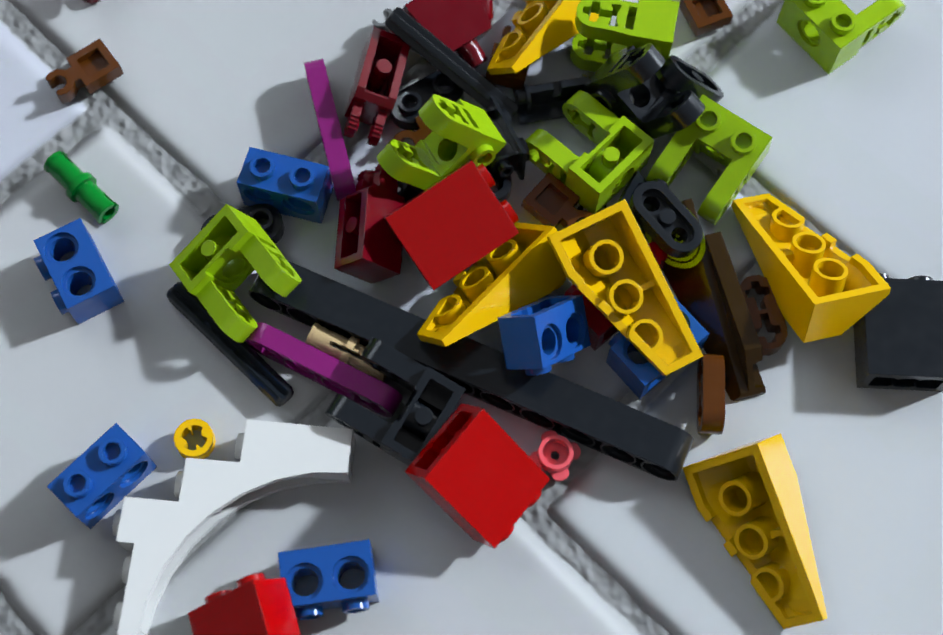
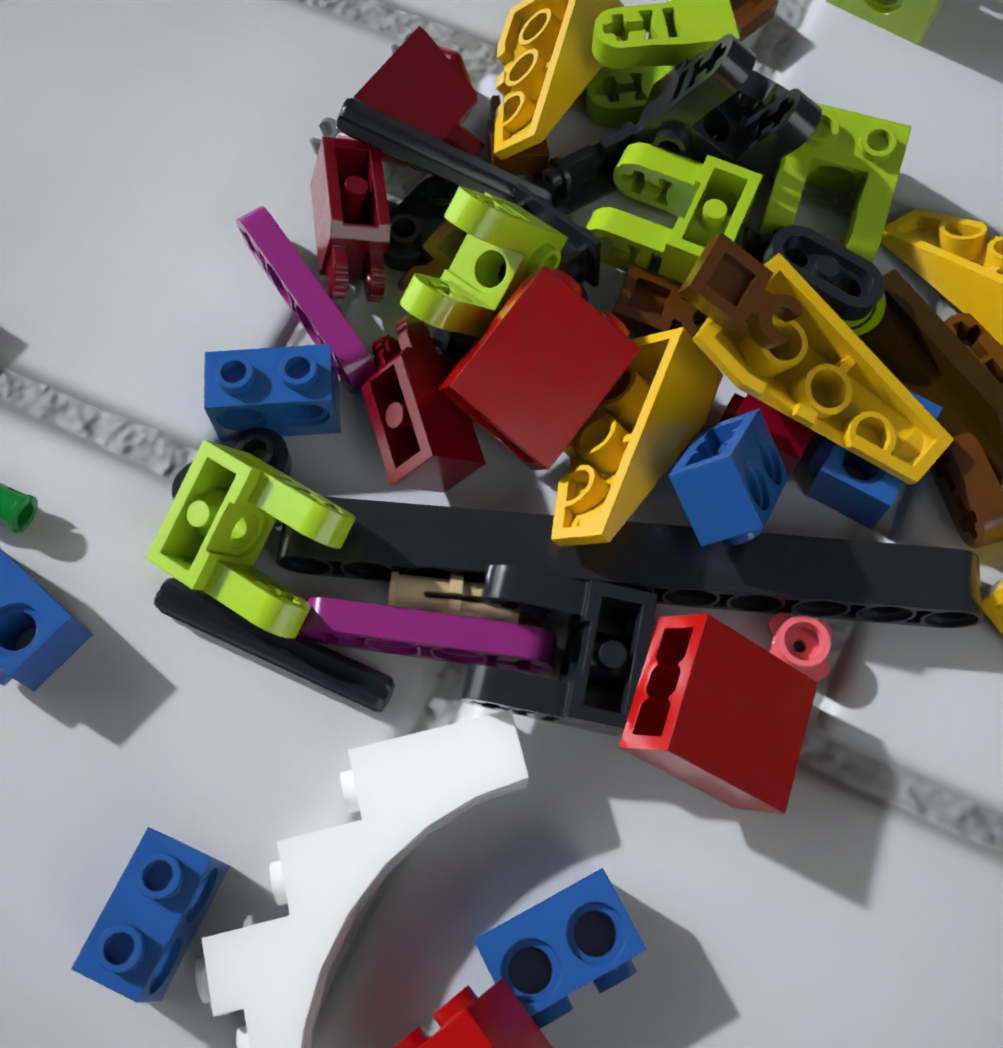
camera: 20 degrees left, 0 degrees up
(188, 427) = (258, 820): yellow bush -> none
(578, 213) = (731, 291): none -> reddish brown plate

